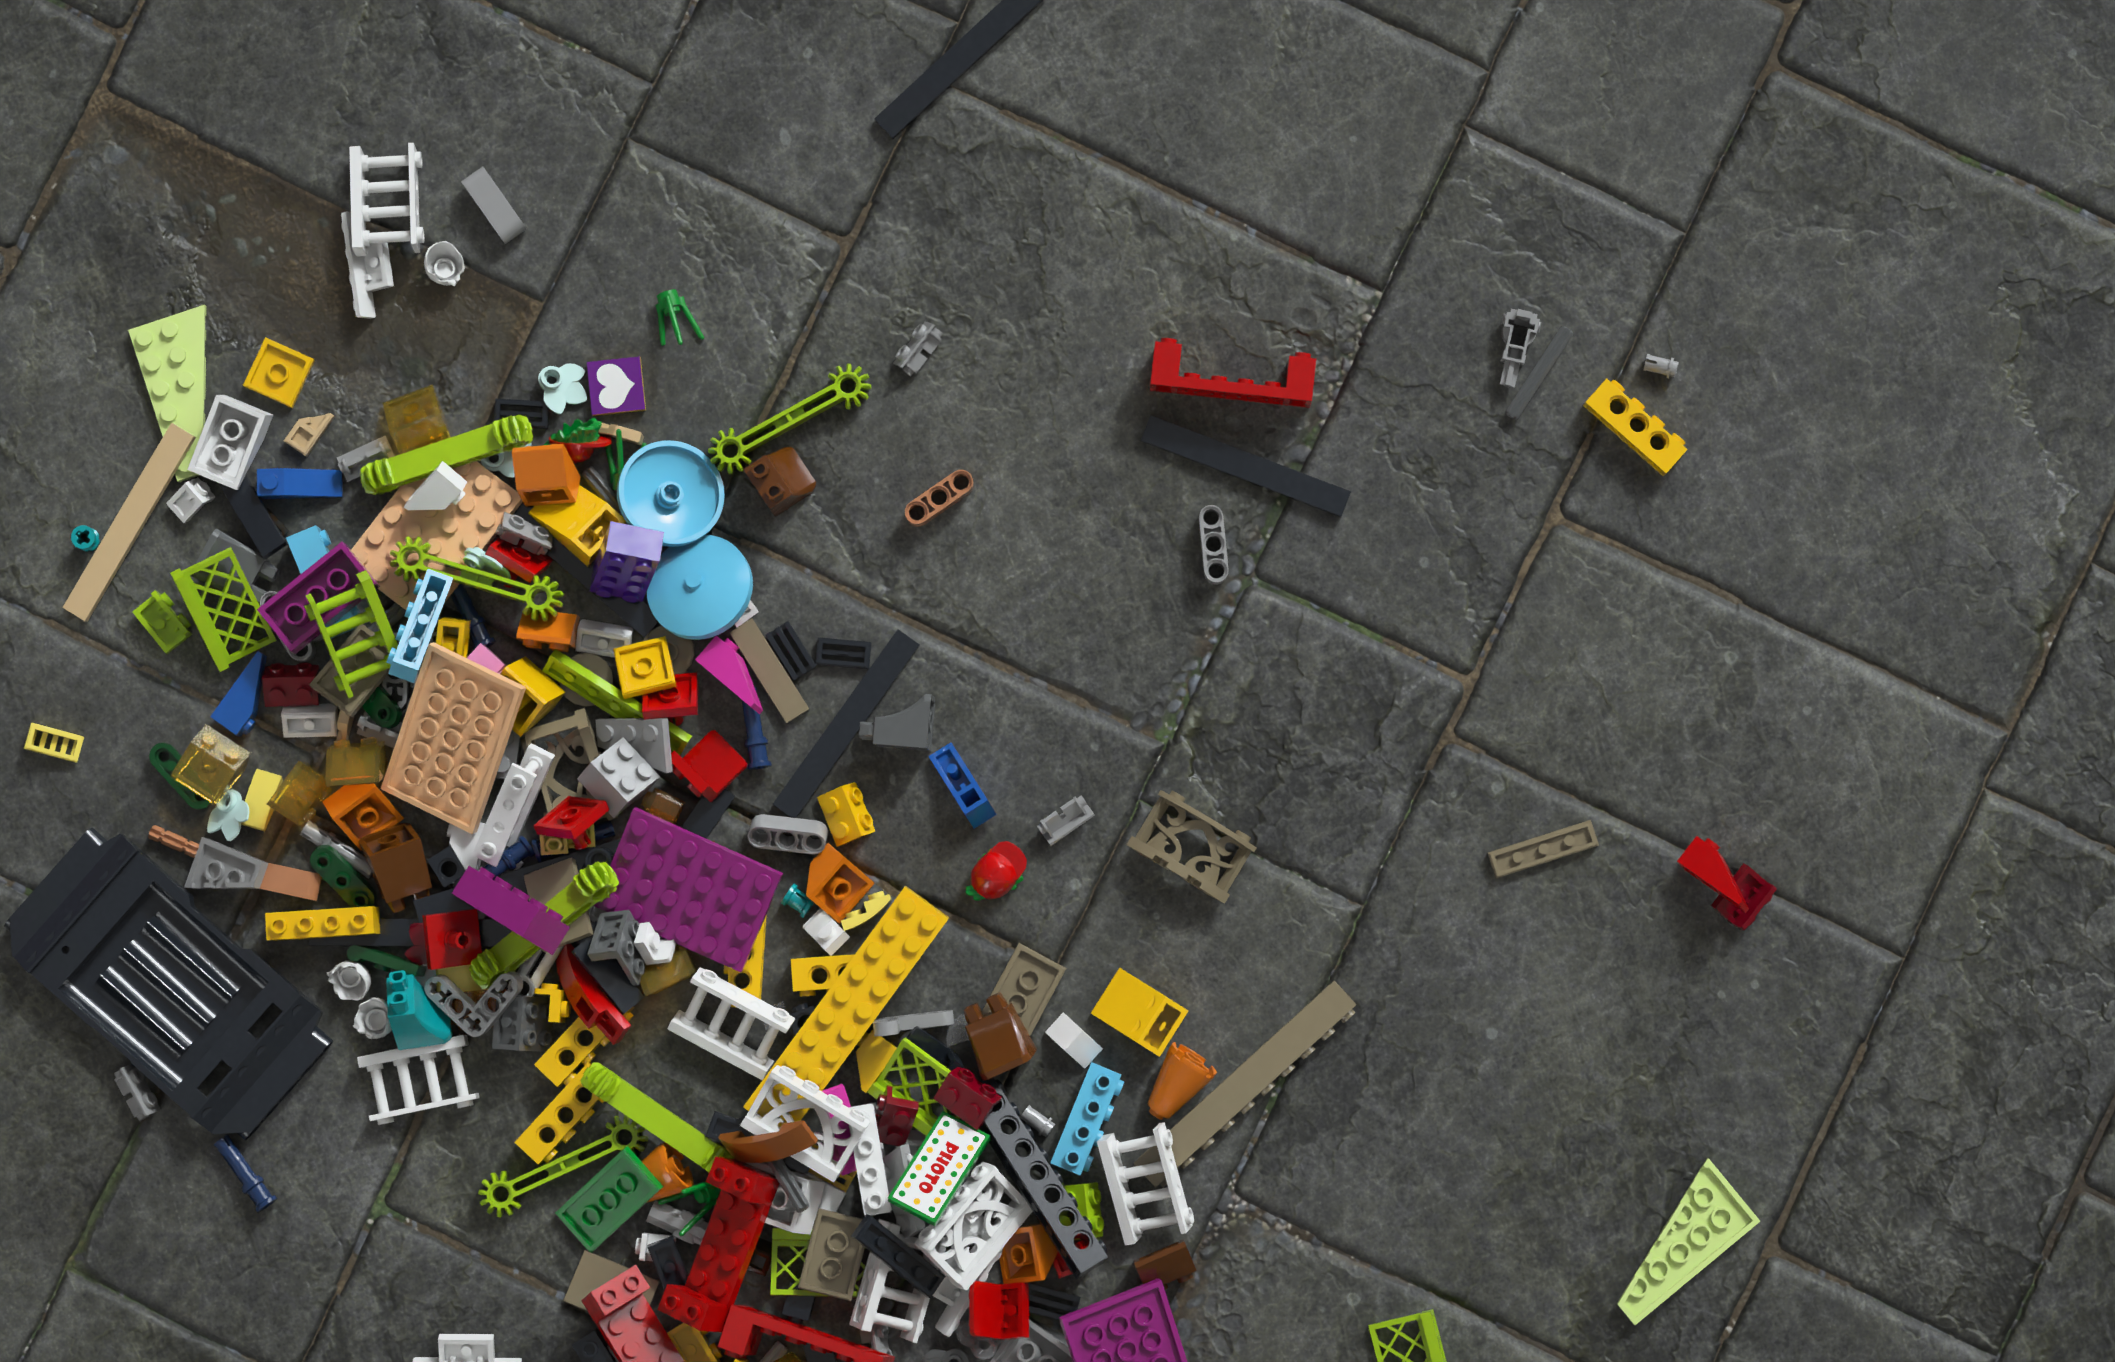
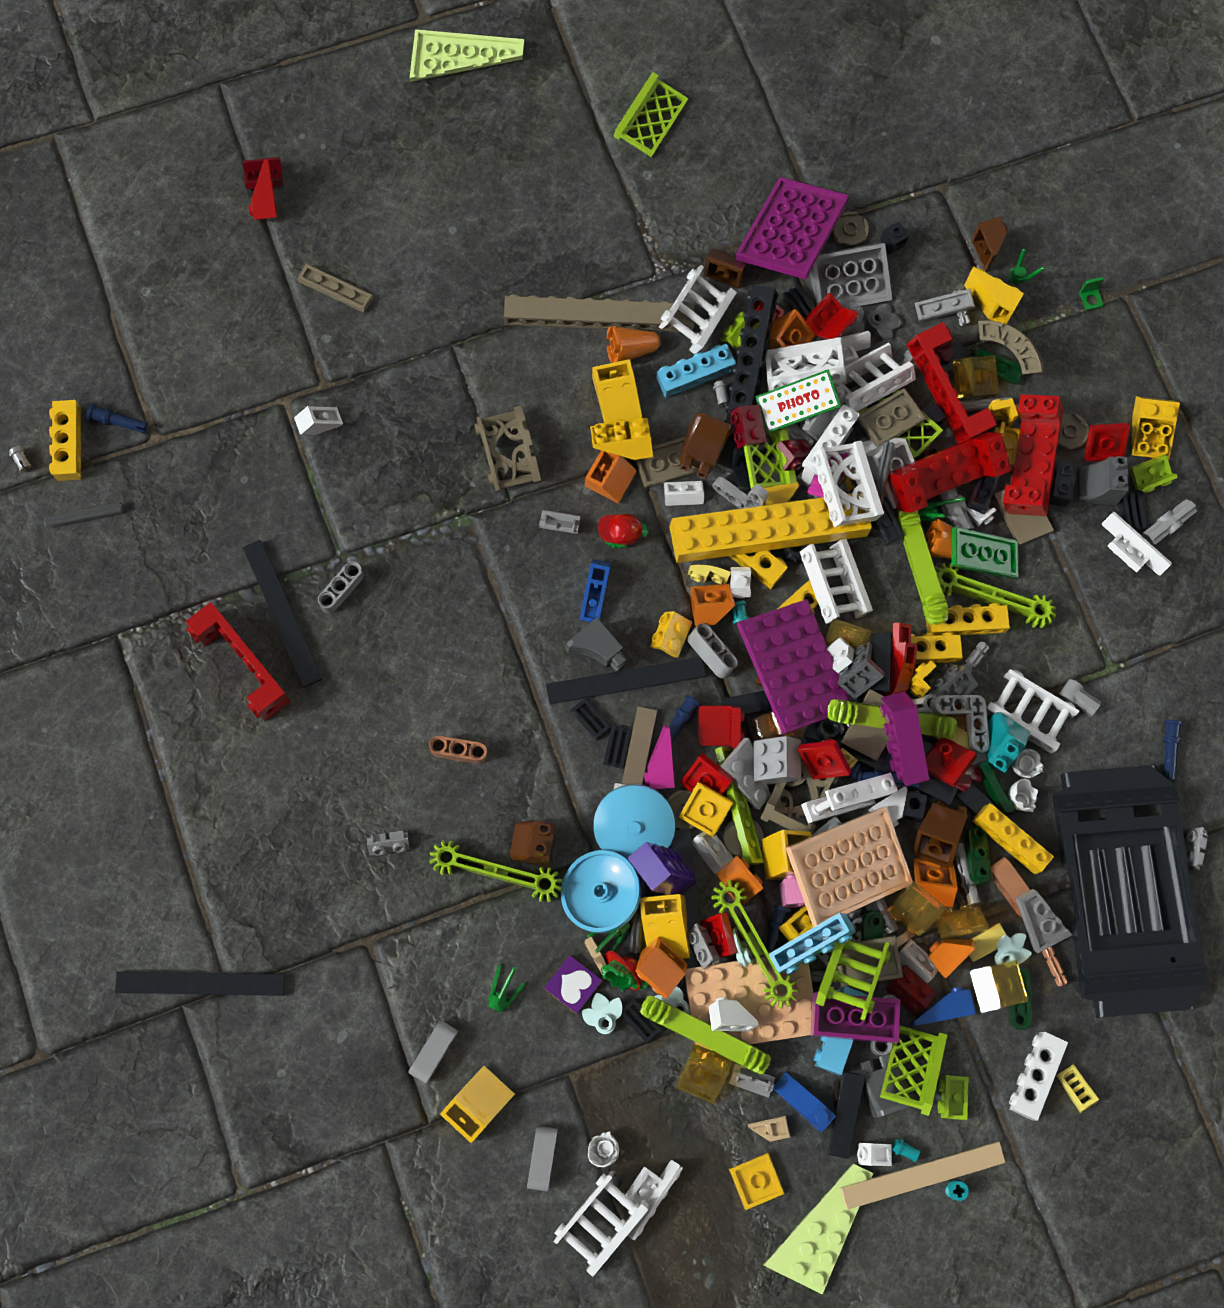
camera: 150 degrees left, 10 degrees down
(80, 681) = (1055, 1048): none -> white brick
(165, 530) = (905, 1150): none -> teal pin
(229, 441) = (822, 1165): white slope -> none
(282, 750) = (950, 954): none -> orange slope
(388, 1139) = (1075, 693): none -> light grey piece
(523, 1081) = (976, 656): none -> light grey axle
(598, 194) = (477, 1104): none -> yellow slope
(685, 202) = (433, 1051): none -> light grey beam
(768, 1147) = (866, 478): dark orange slope -> none
(898, 1256) = (860, 383): black tile -> none
(974, 976) = (684, 493): none -> white slope
(1061, 918) = (610, 476): none -> orange slope
(1073, 1040) = (664, 415): white slope -> none
(1084, 965) = (624, 438): none -> yellow slope
(1410, 691) = (317, 420): none -> white slope
(1514, 355) = (87, 537): light grey piece -> none
(1620, 491) = (107, 417): none -> dark blue pin

